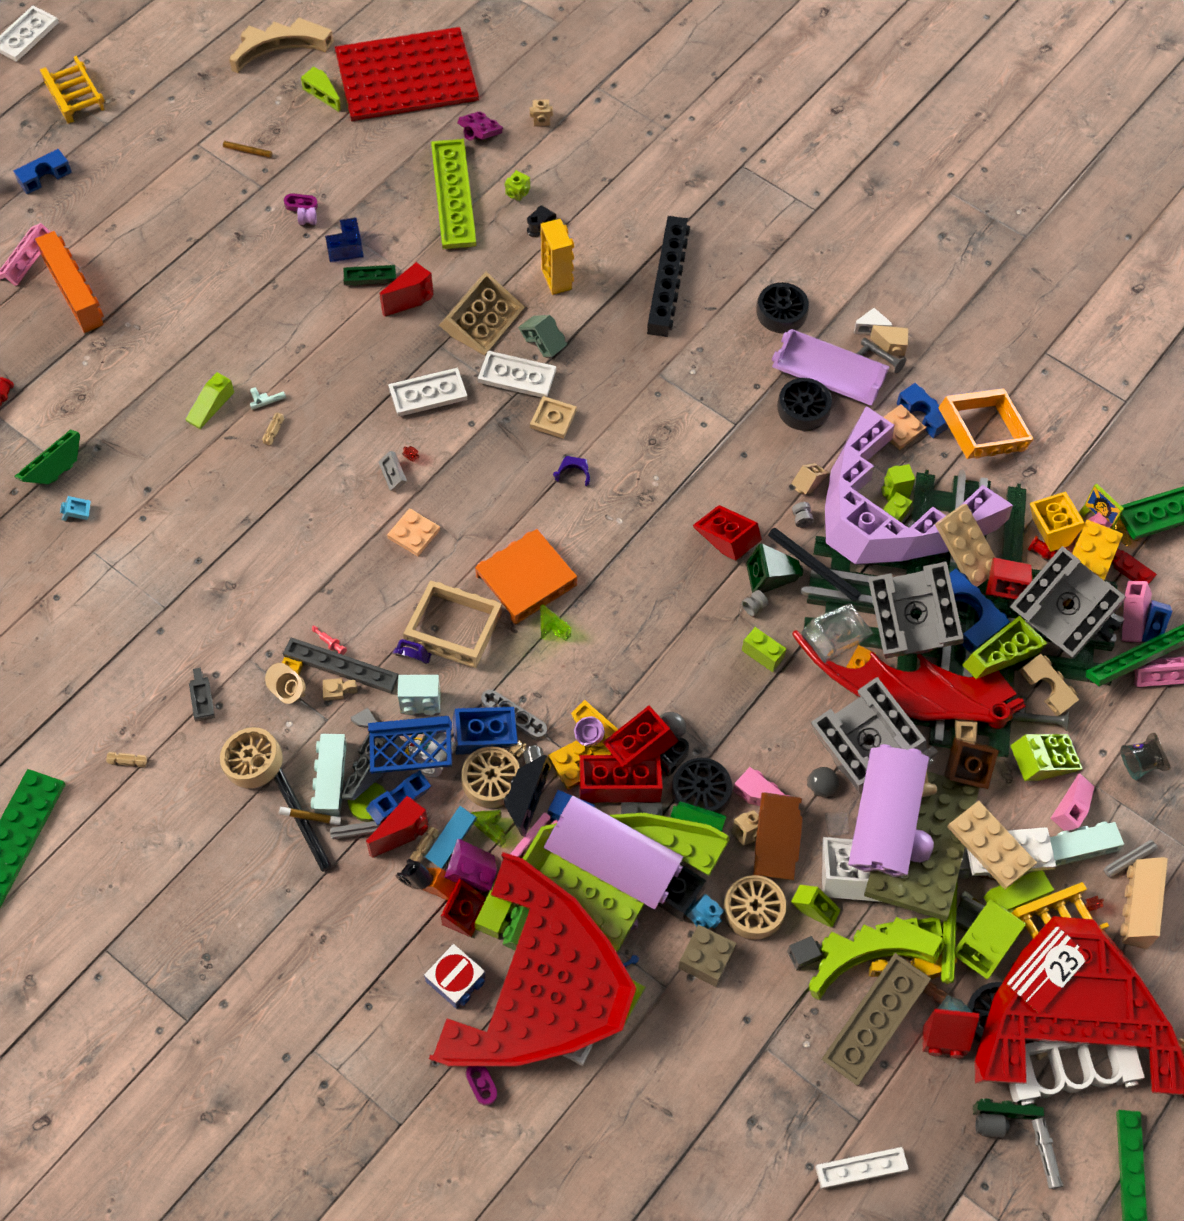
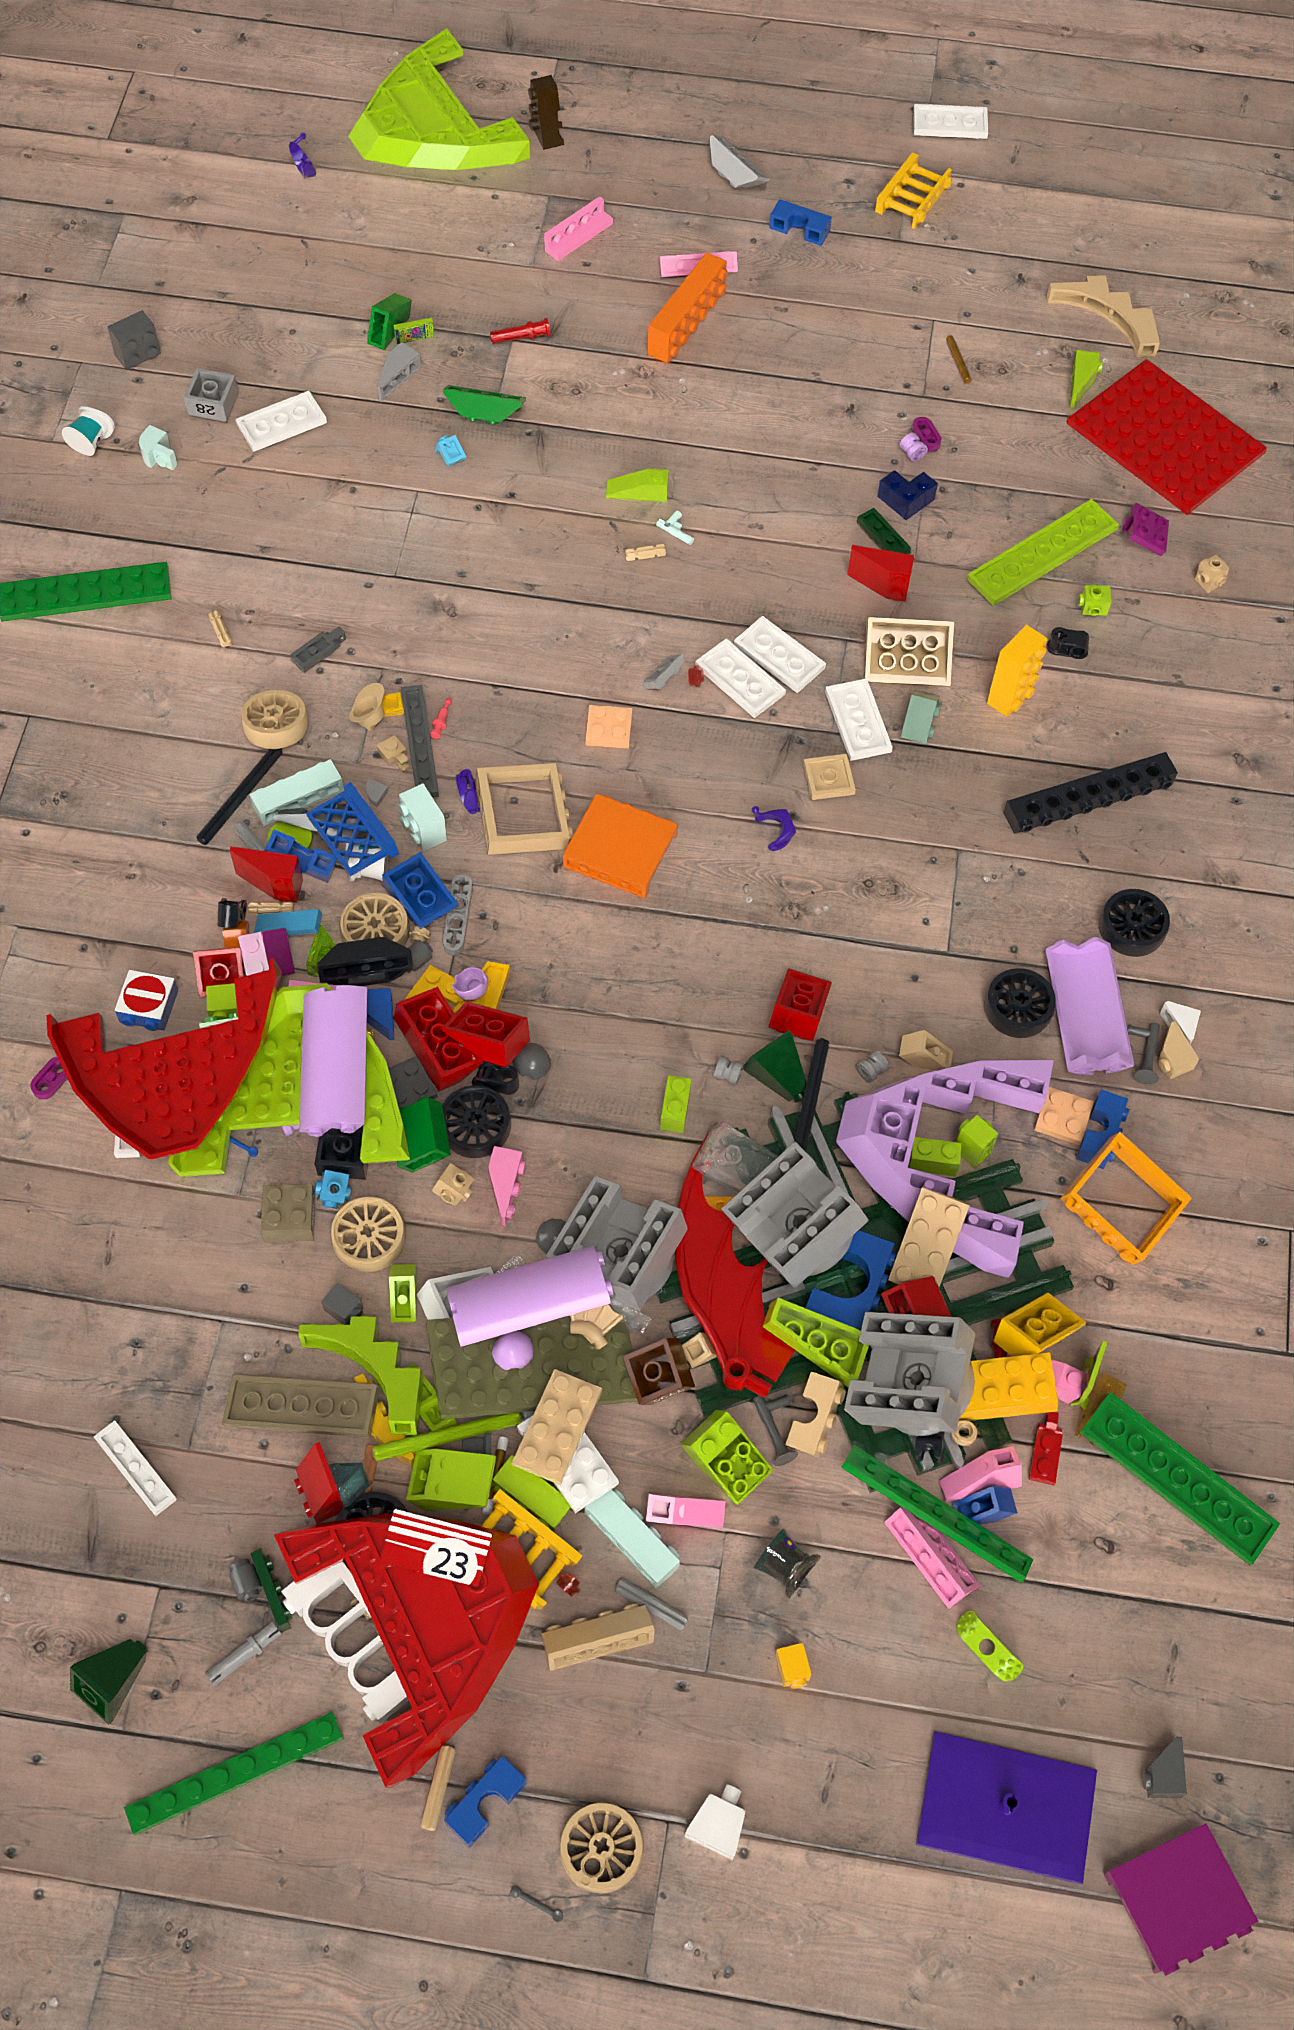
camera: 60 degrees right, 0 degrees up
(309, 815) = (239, 787): pearl gold bar -> none
(431, 426) = (740, 678): none -> white plate
(552, 622) = (579, 892): clear neon green slope -> none
(778, 836) = (455, 1214): dark orange piece -> none

